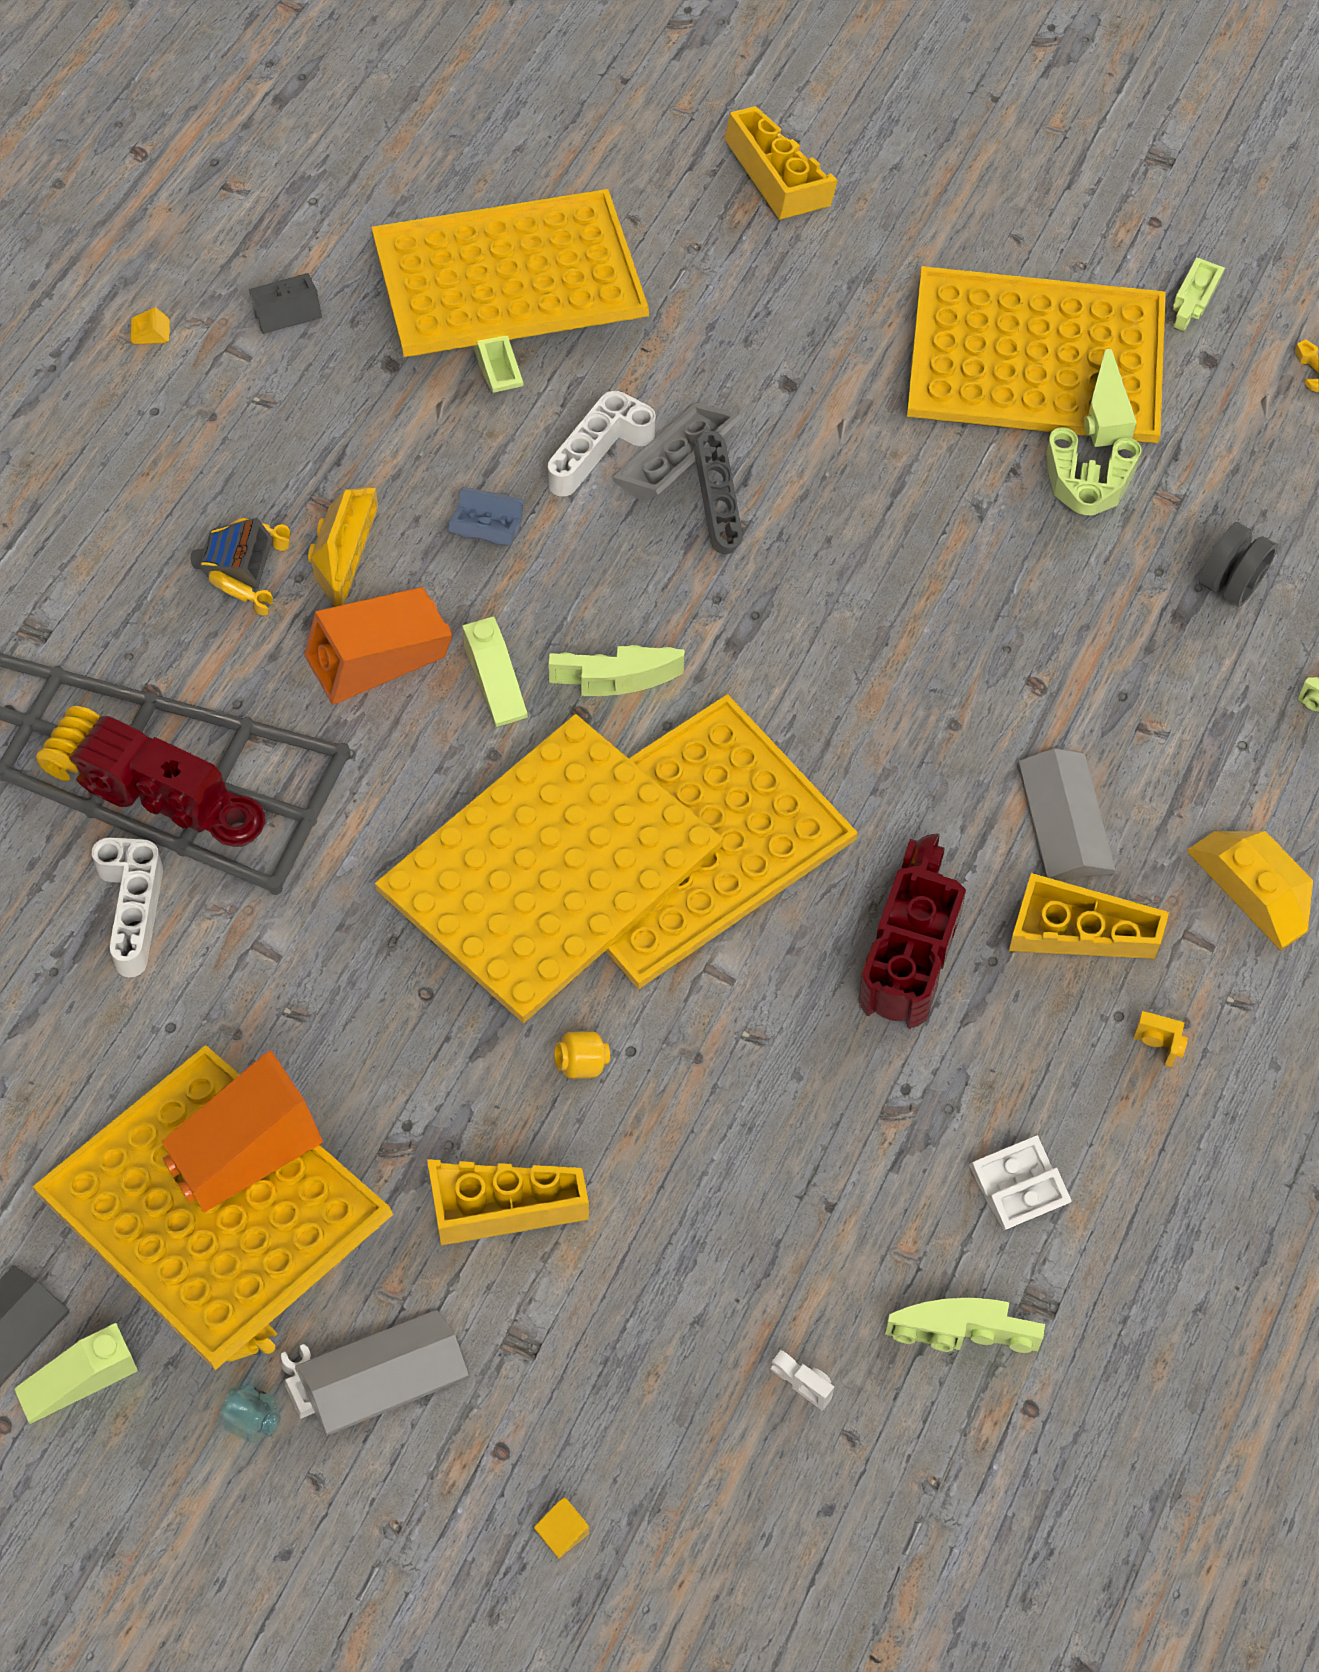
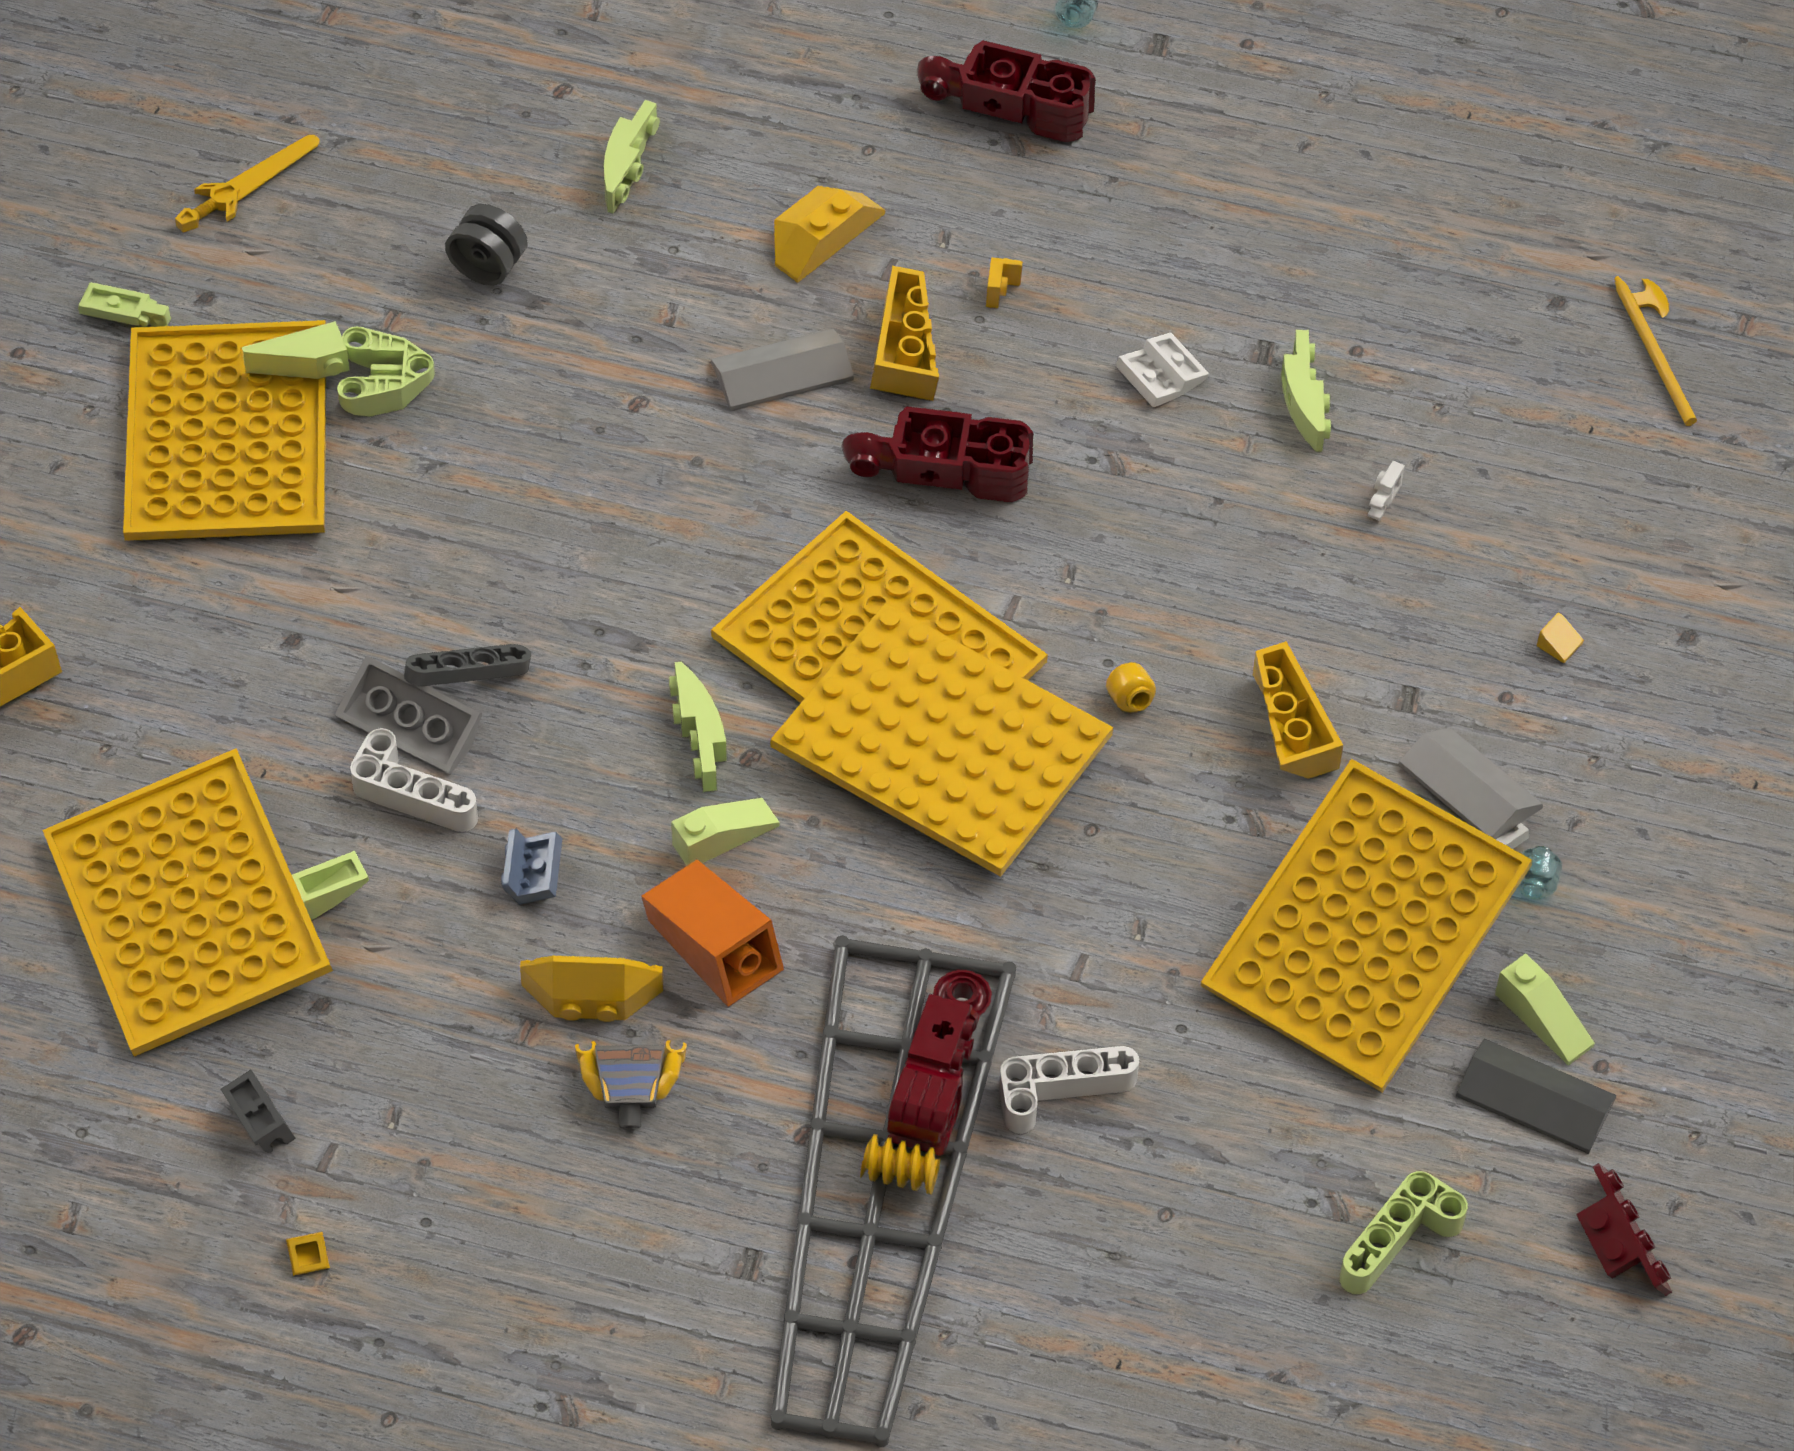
camera: 100 degrees left, 5 degrees down
(241, 1135) = (1311, 889): orange slope -> none

